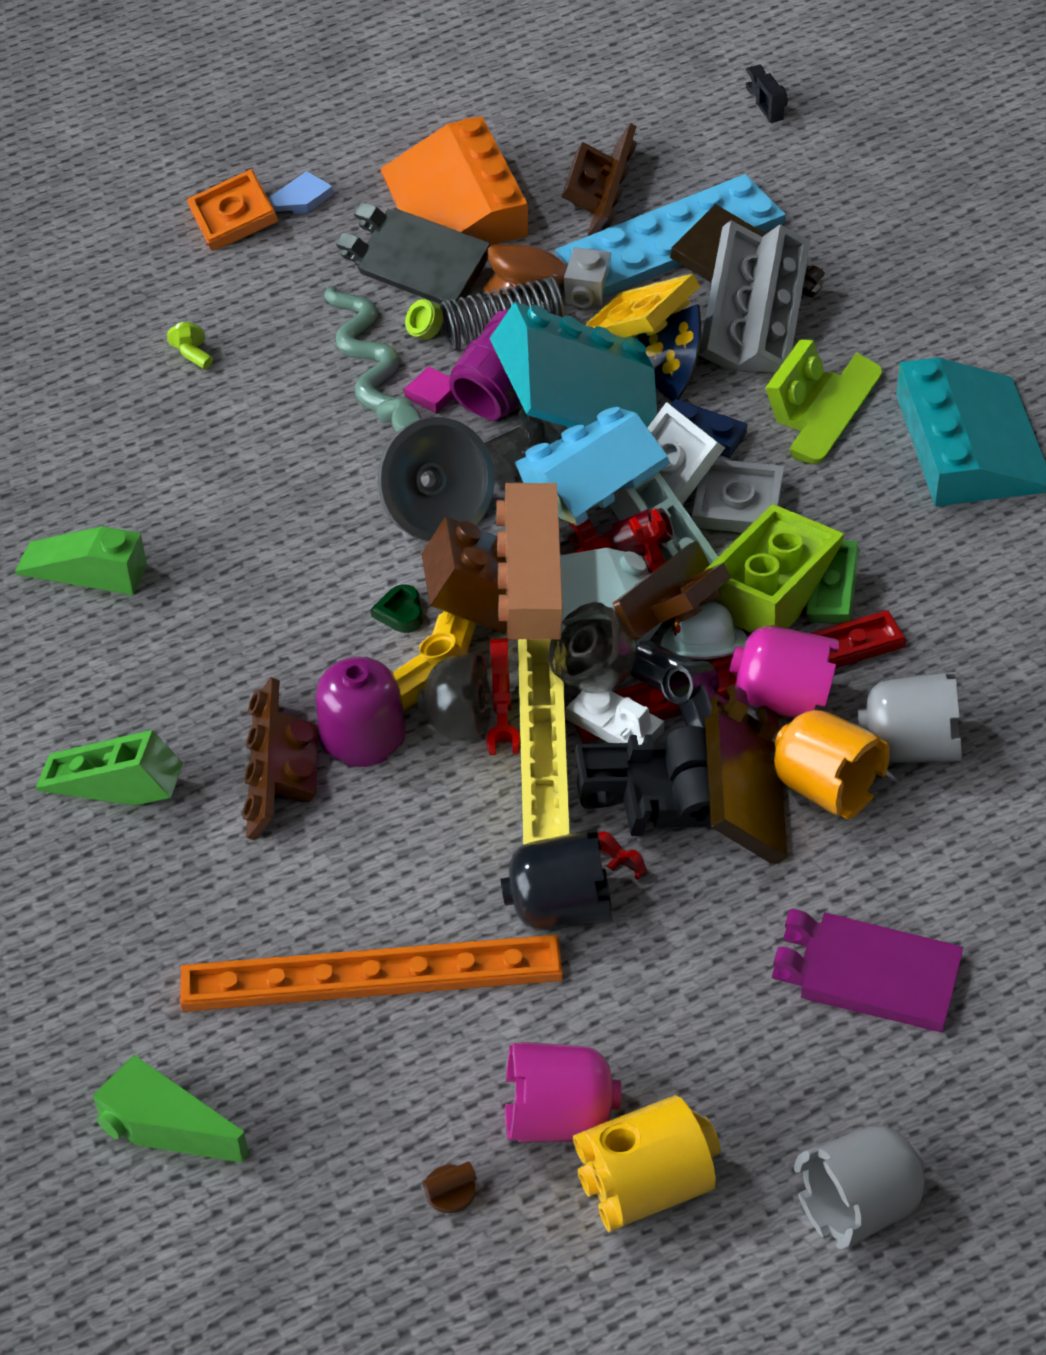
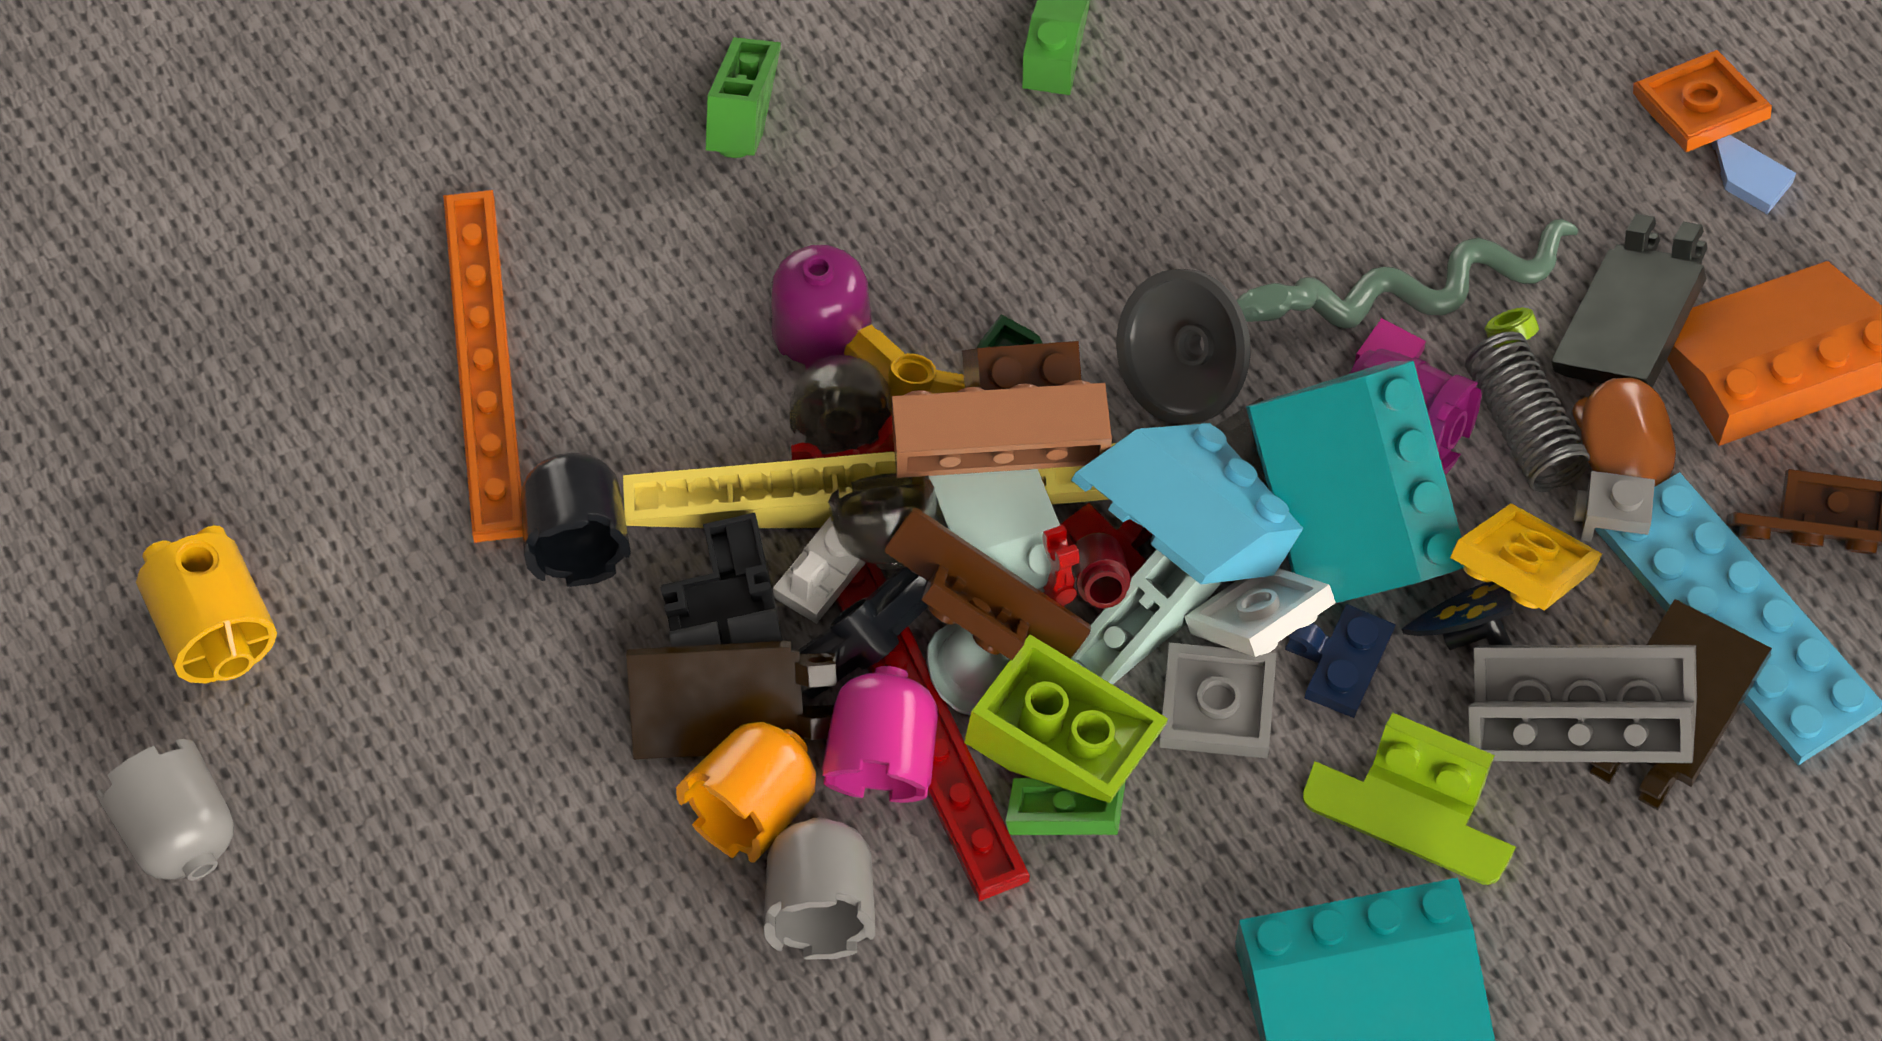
camera: 85 degrees right, 10 degrees up
(164, 1116) = (308, 187): bright green slope -> none
(187, 338) = (1440, 81): lime plate -> none
(280, 758) = (754, 250): reddish brown bracket -> none
(450, 1187) = (212, 447): reddish brown plate -> none
(558, 1091) = (297, 521): dark pink cylinder -> none
(620, 856) = (636, 593): red piece -> none
(869, 968) = (473, 847): magenta tile -> none

